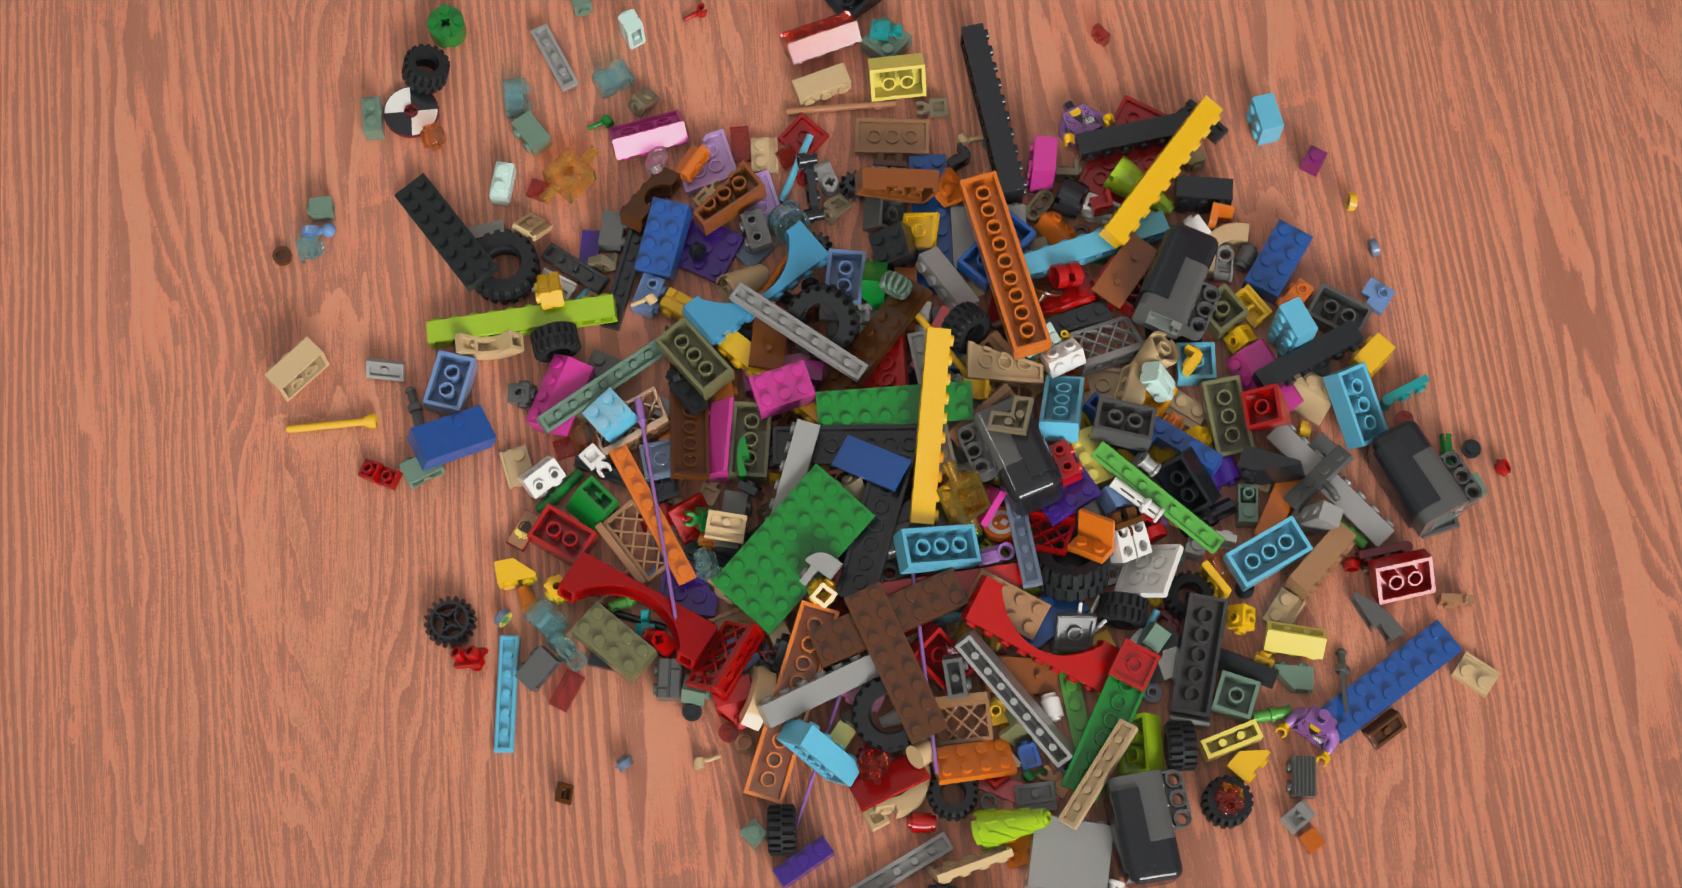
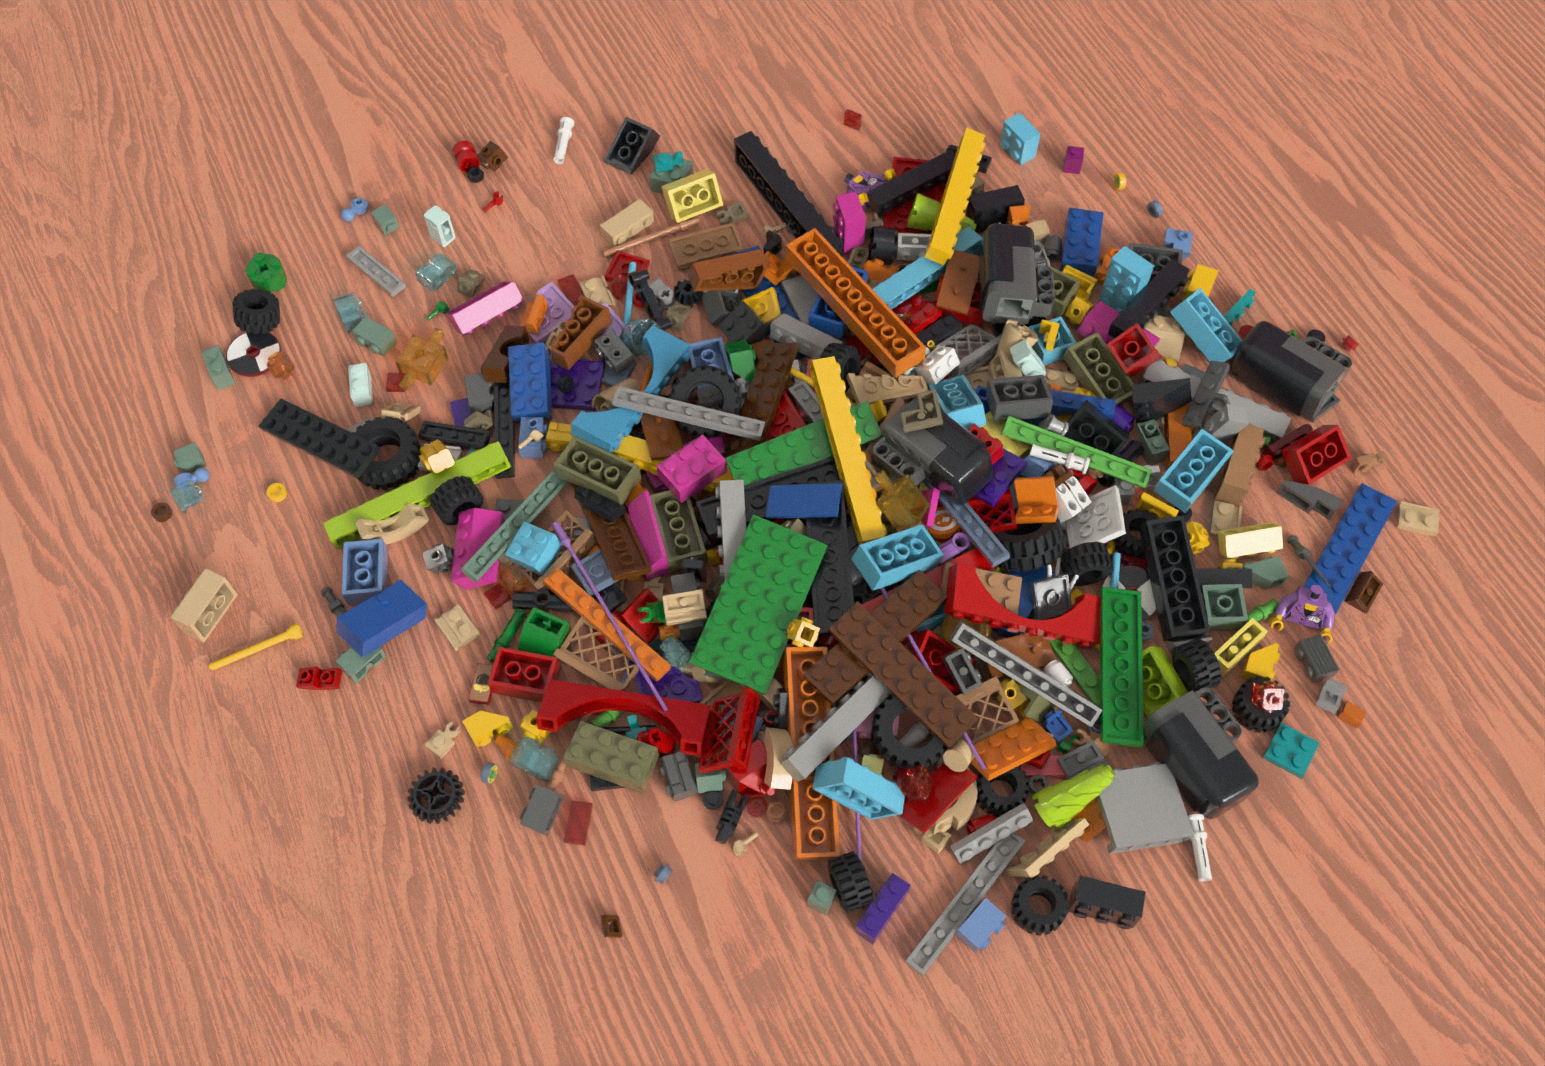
camera: 20 degrees left, 10 degrees down
(385, 369) = (295, 580): light grey plate -> none
(392, 271) = (276, 492): none -> yellow tile
(469, 658) = (468, 823): red hips -> none
(470, 573) = (442, 742): none -> tan plate
(506, 694) = (518, 848): medium azure tile -> none
(542, 477) = (484, 627): white brick -> none
(566, 650) = (565, 781): clear light blue brick -> none
(594, 459) = (531, 591): white plate -> none
(656, 160) = (499, 321): clear plate -> none
(701, 733) = (730, 817): none -> black hinge
(742, 455) = (677, 539): green slope -> none
(820, 37) = (612, 185): clear red brick -> none
(821, 562) = (793, 603): light grey brick -> none
(895, 285) = (763, 347): sand green gear -> none
(925, 831) = (992, 833): none -> light grey plate
(1066, 275) = (909, 298): red wheel -> none
(1098, 774) = (1135, 717): tan plate -> none
(1101, 204) = (915, 237): red panel -> none
(1134, 665) = (1122, 605): red plate -> none
(1154, 637) = (1127, 576): sand green brick -> none
(1237, 853) = (1291, 750): none -> teal plate

